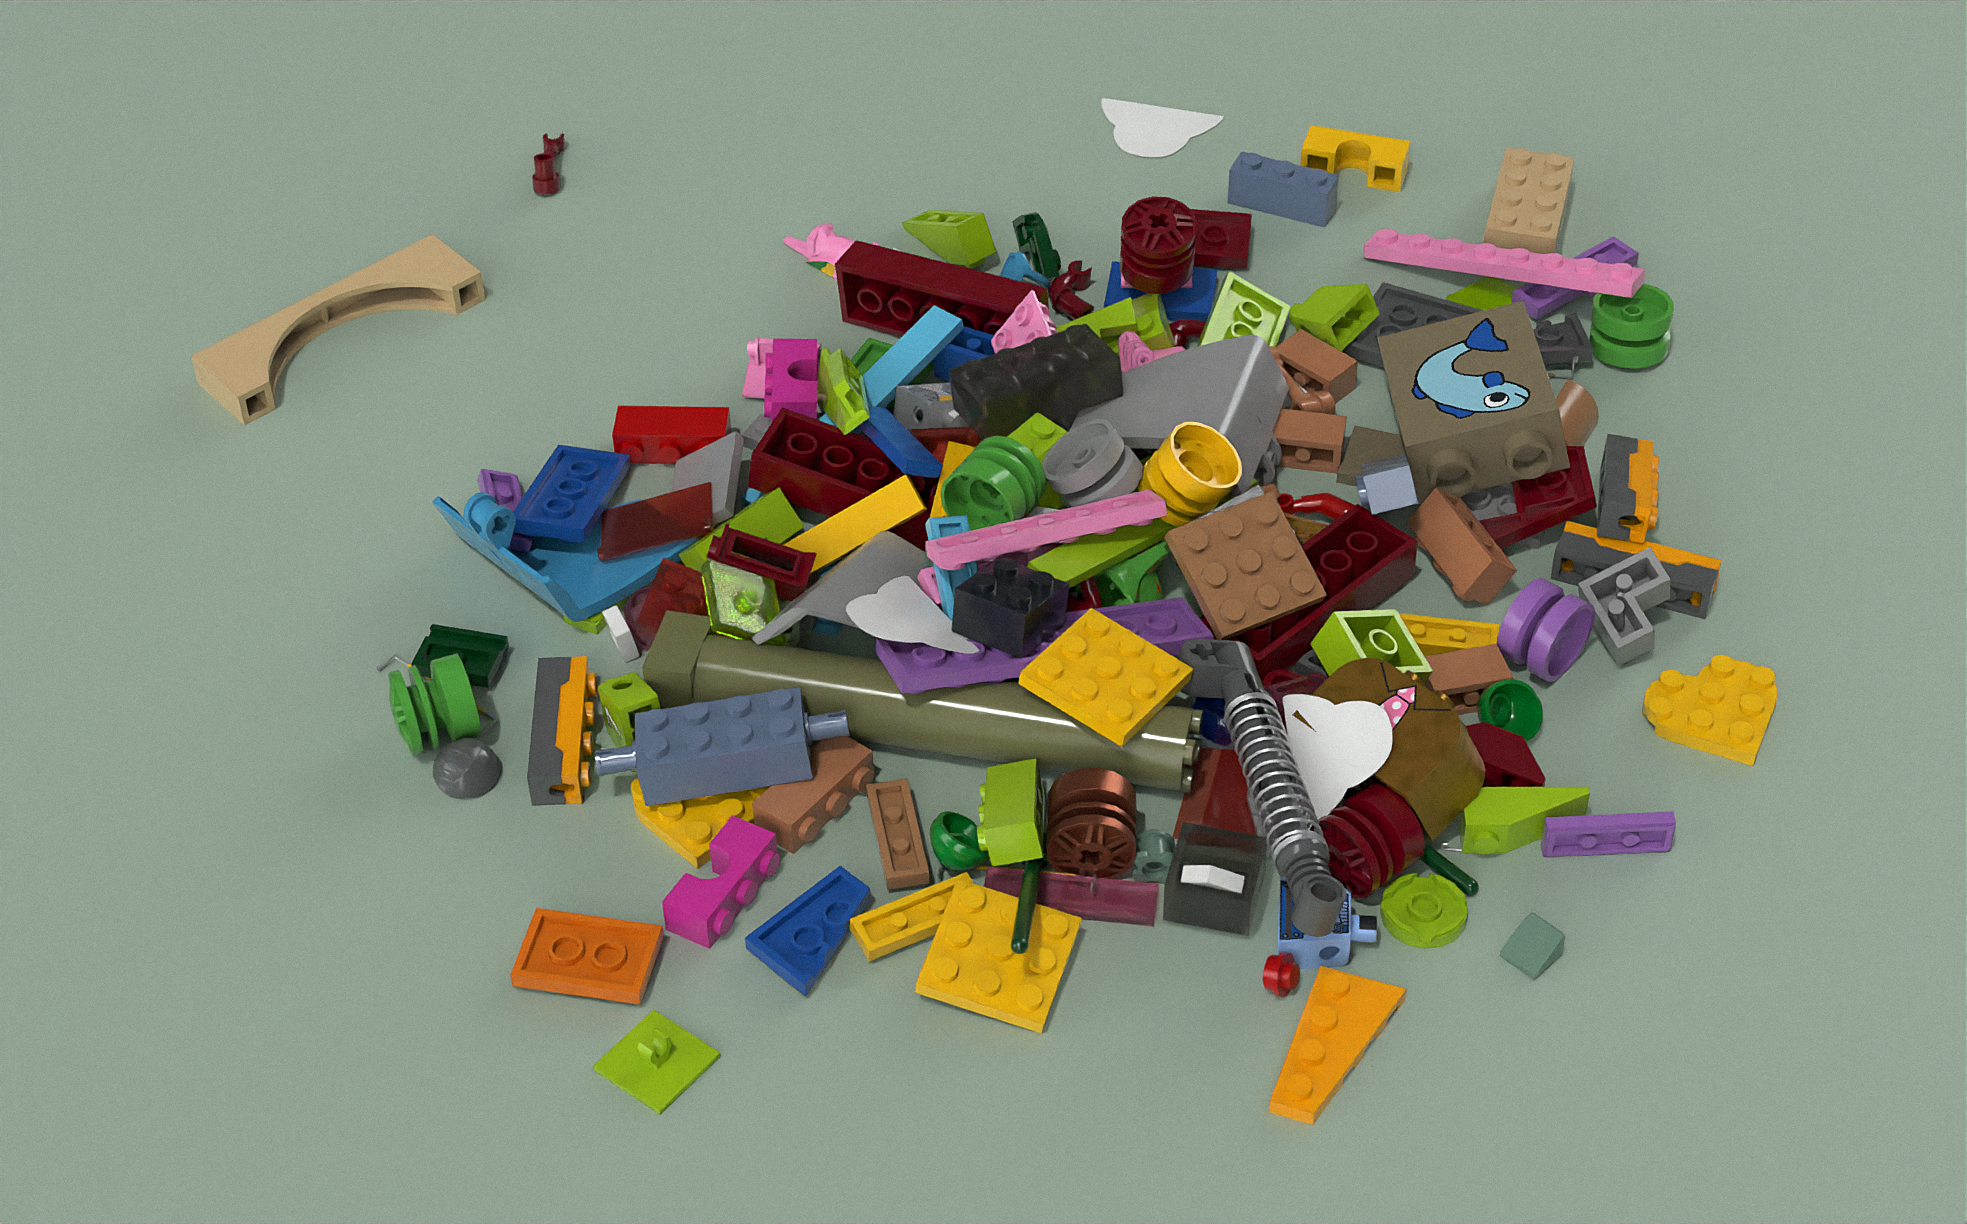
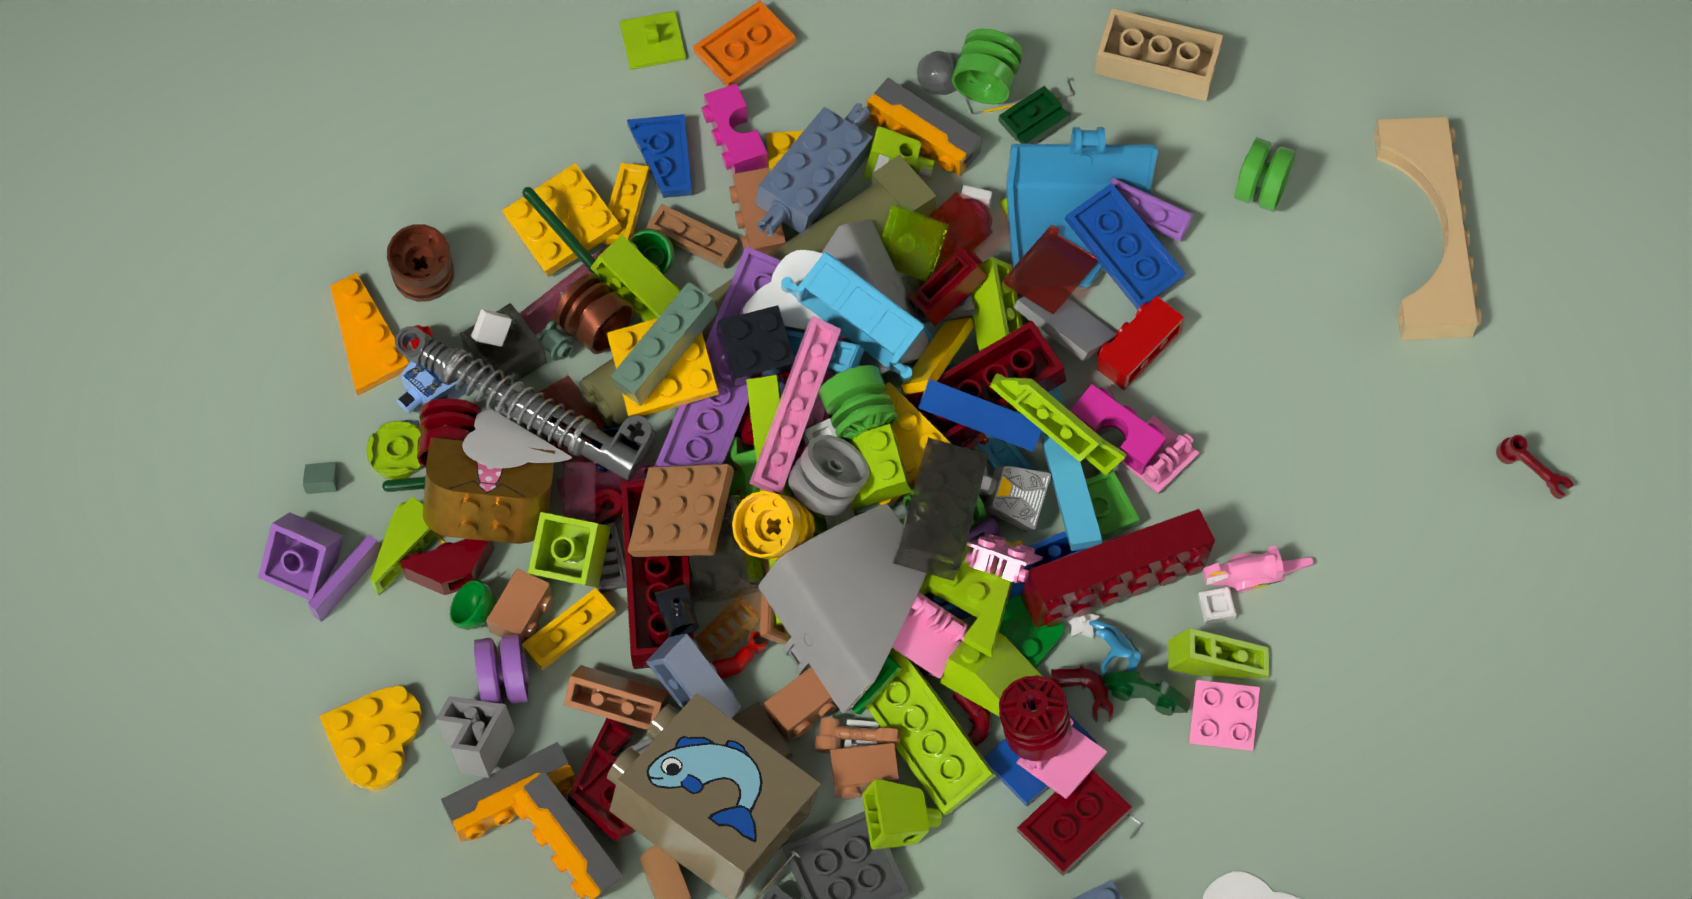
camera: 130 degrees right, 20 degrees up
(289, 594) = (1158, 54): none -> tan brick
(386, 433) = (1261, 173): none -> bright green wheel
(888, 542) = (859, 311): none -> medium azure container
(996, 203) = (1224, 715): none -> bright pink hinge
(1098, 645) = (664, 343): none -> sand green brick
(1200, 1022) = (415, 249): none -> copper wheel
(1343, 518) = (677, 610): none -> black piece
(1630, 888) = (299, 555): none -> medium lavender slope

